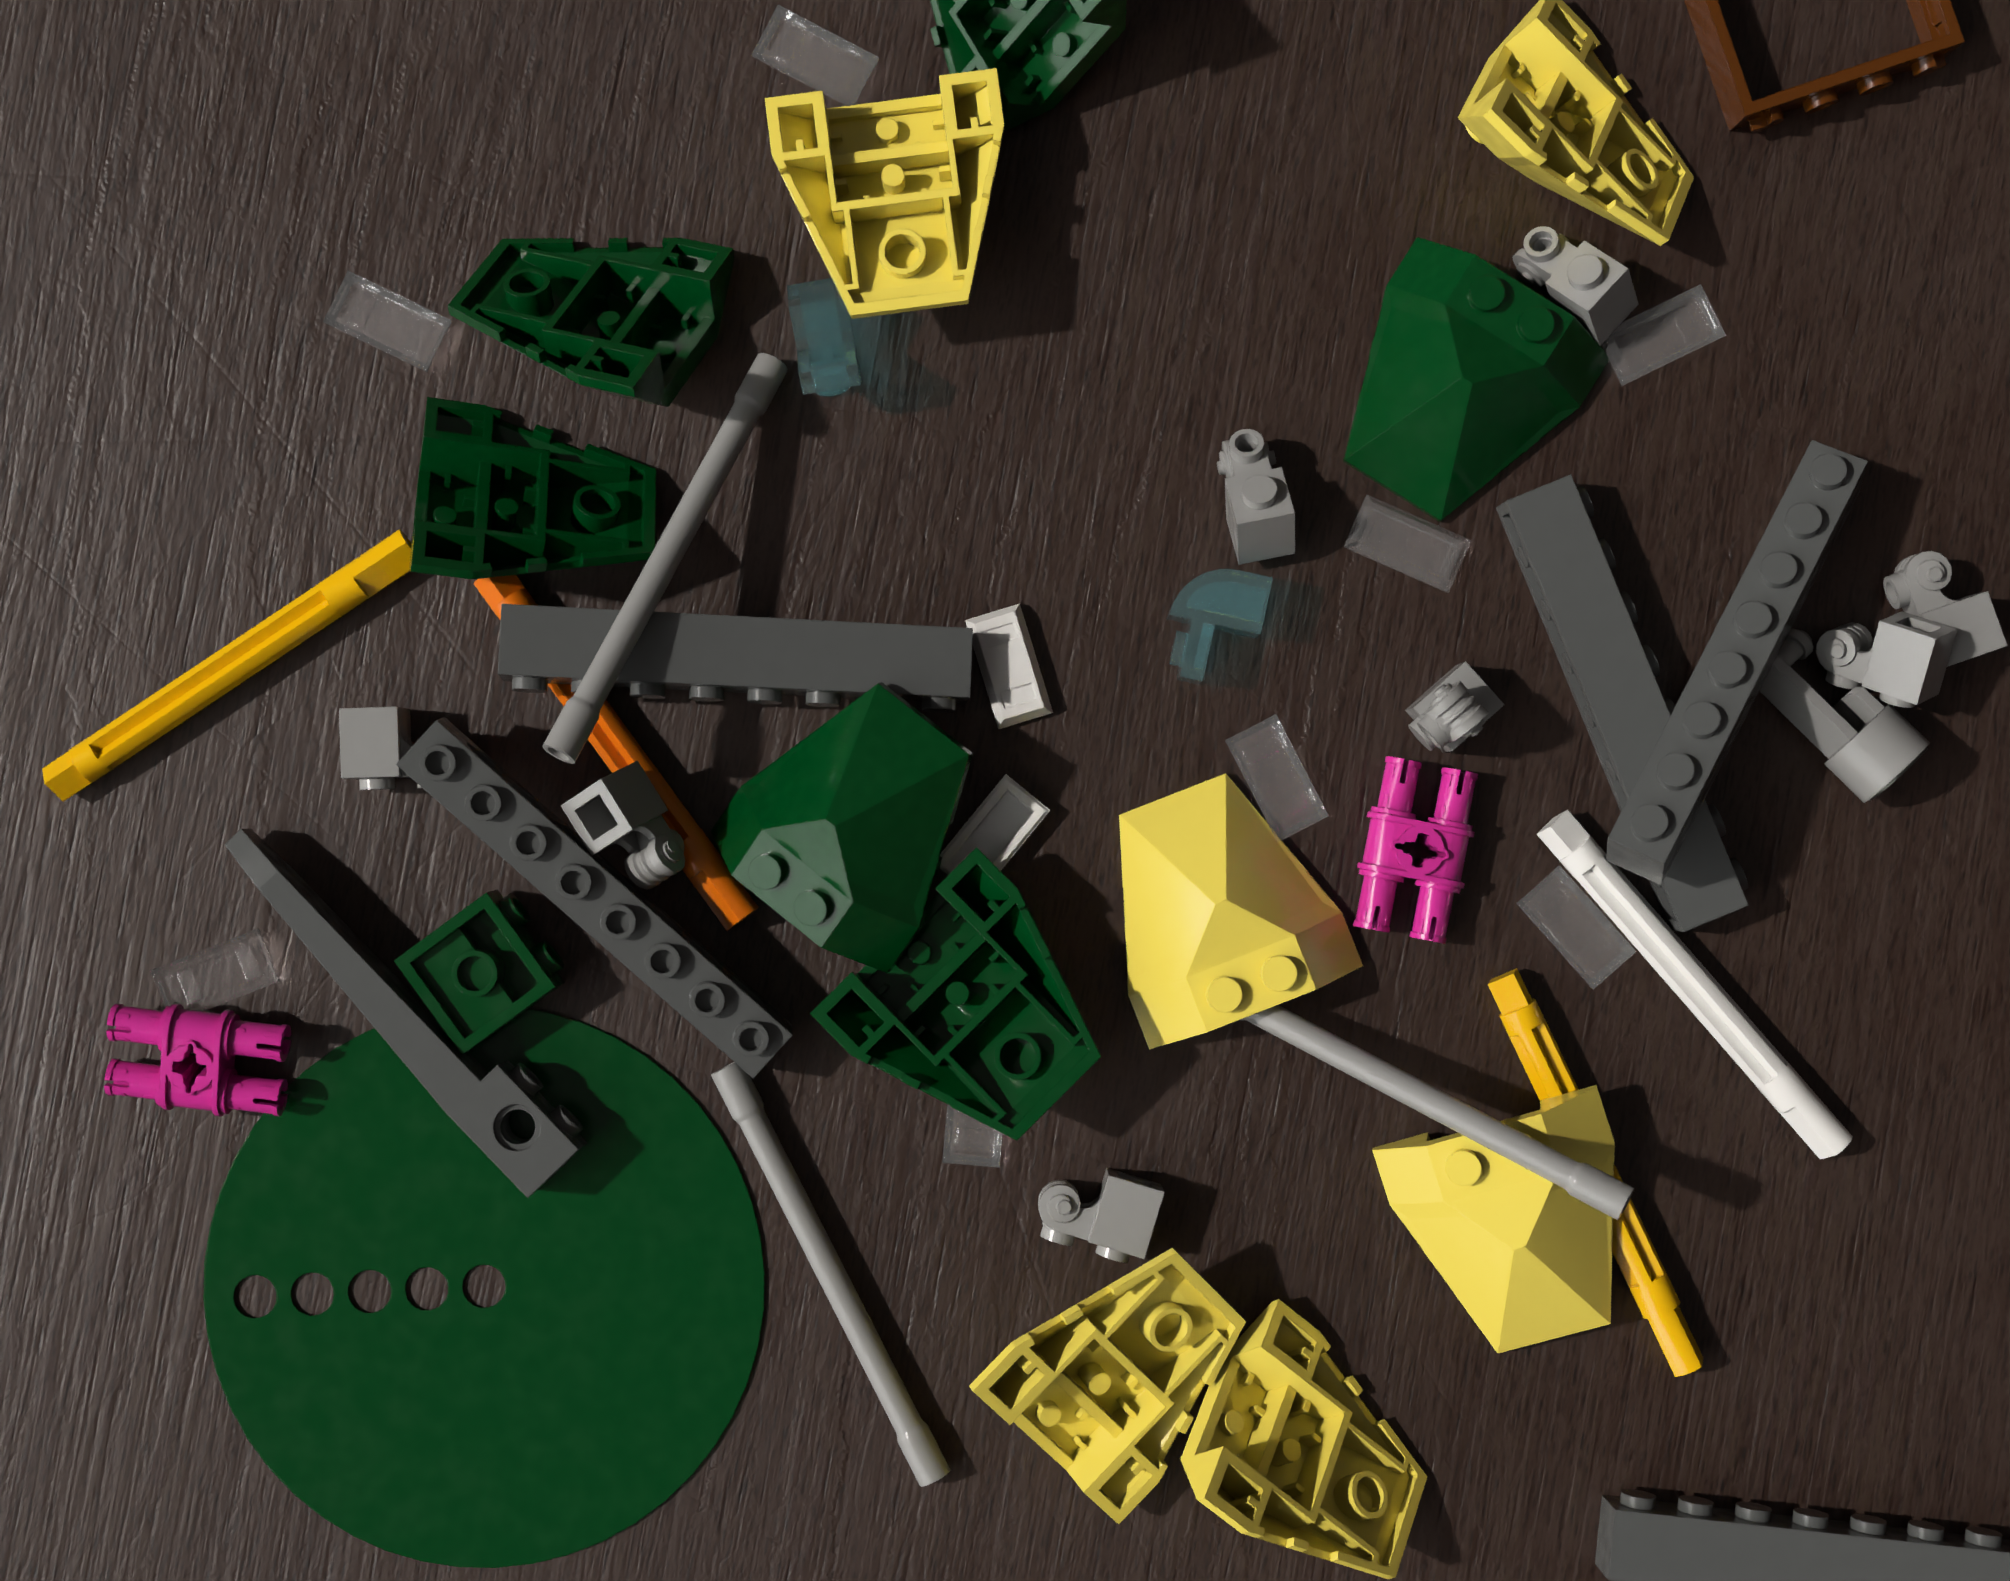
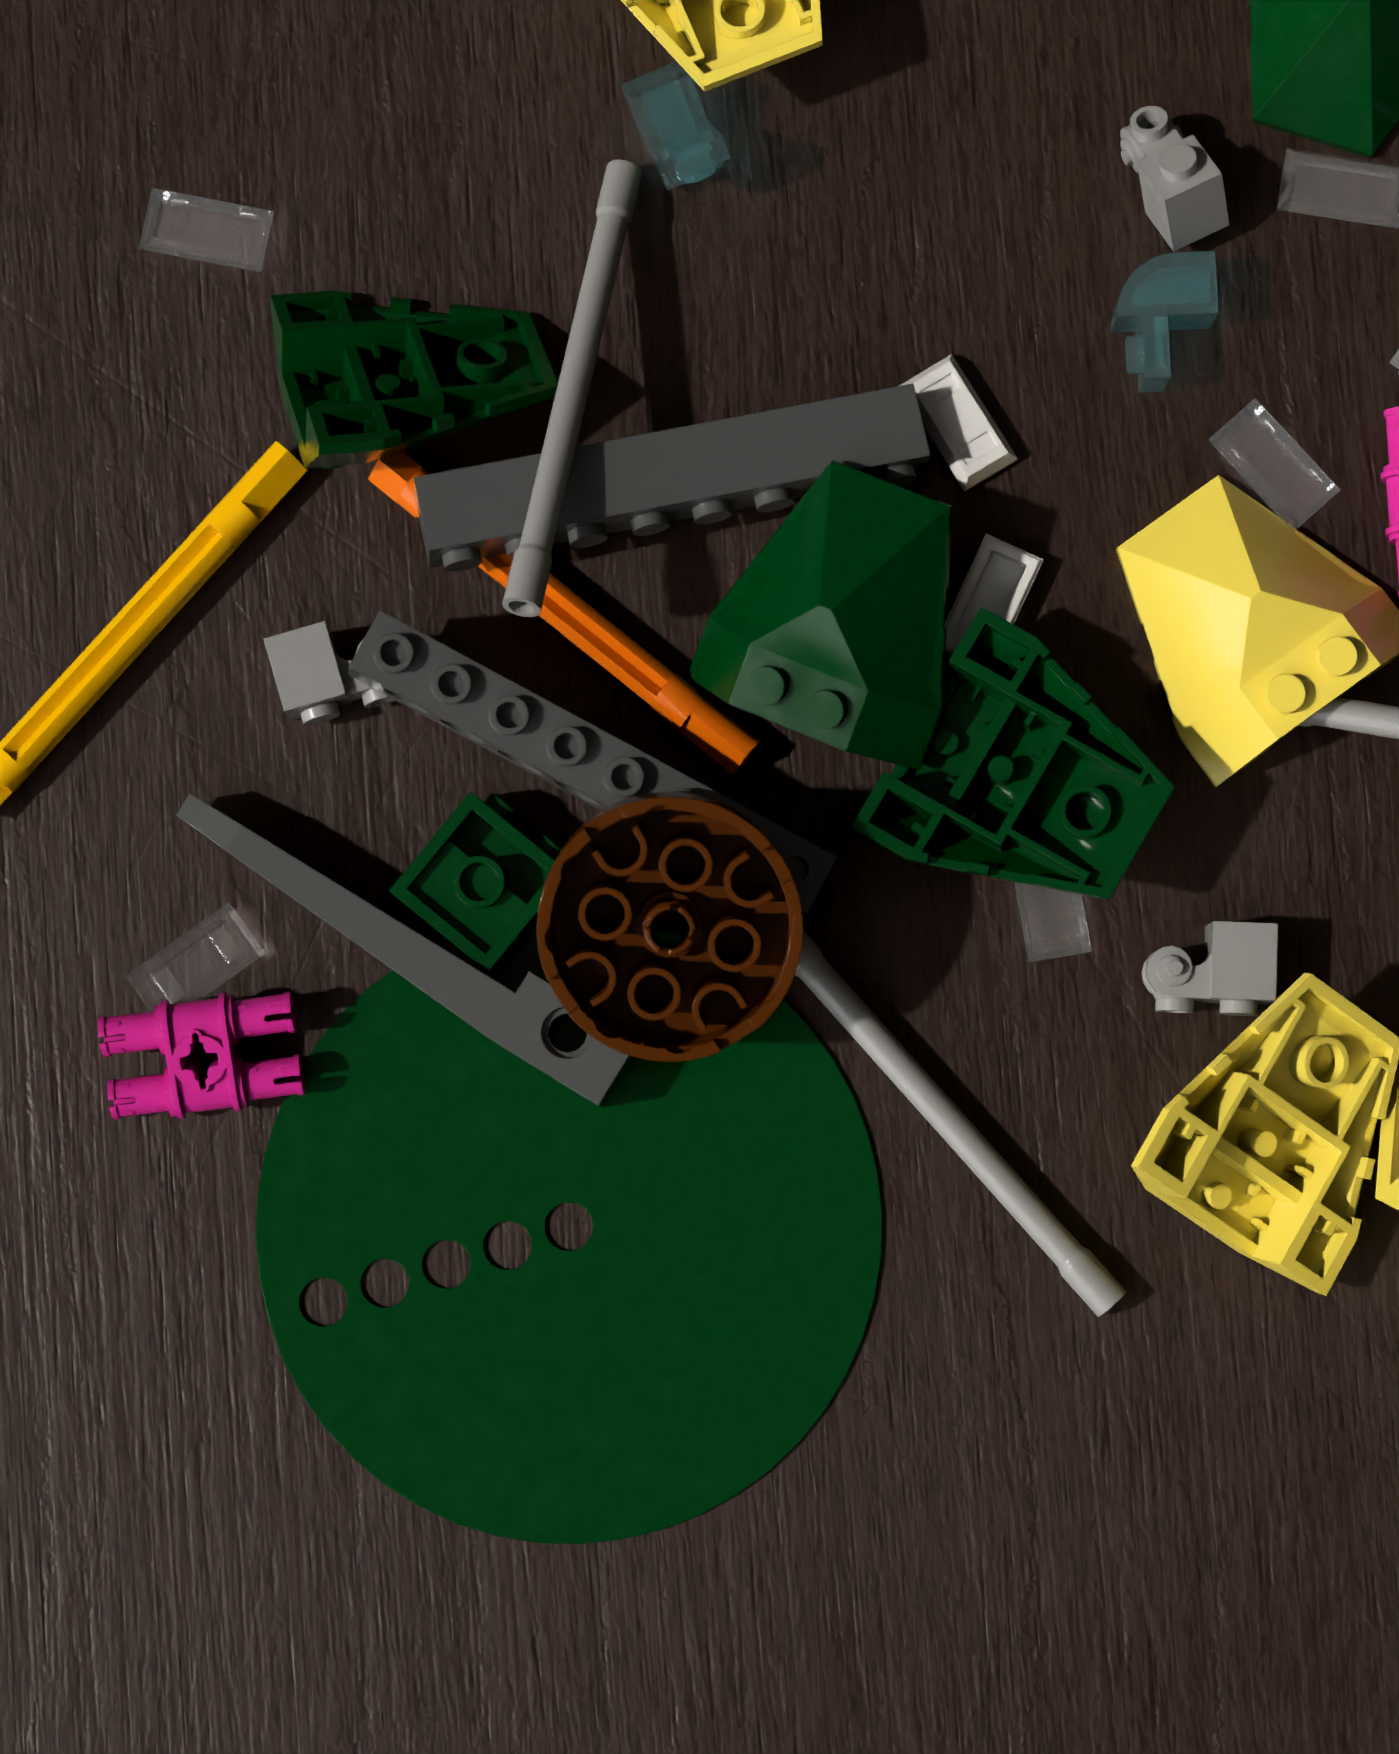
camera: 10 degrees left, 5 degrees down
(603, 315) = (442, 161): dark green wedge -> none
(607, 1128) = (683, 995): none -> reddish brown brick
(628, 813) = (599, 666): light grey brick -> none

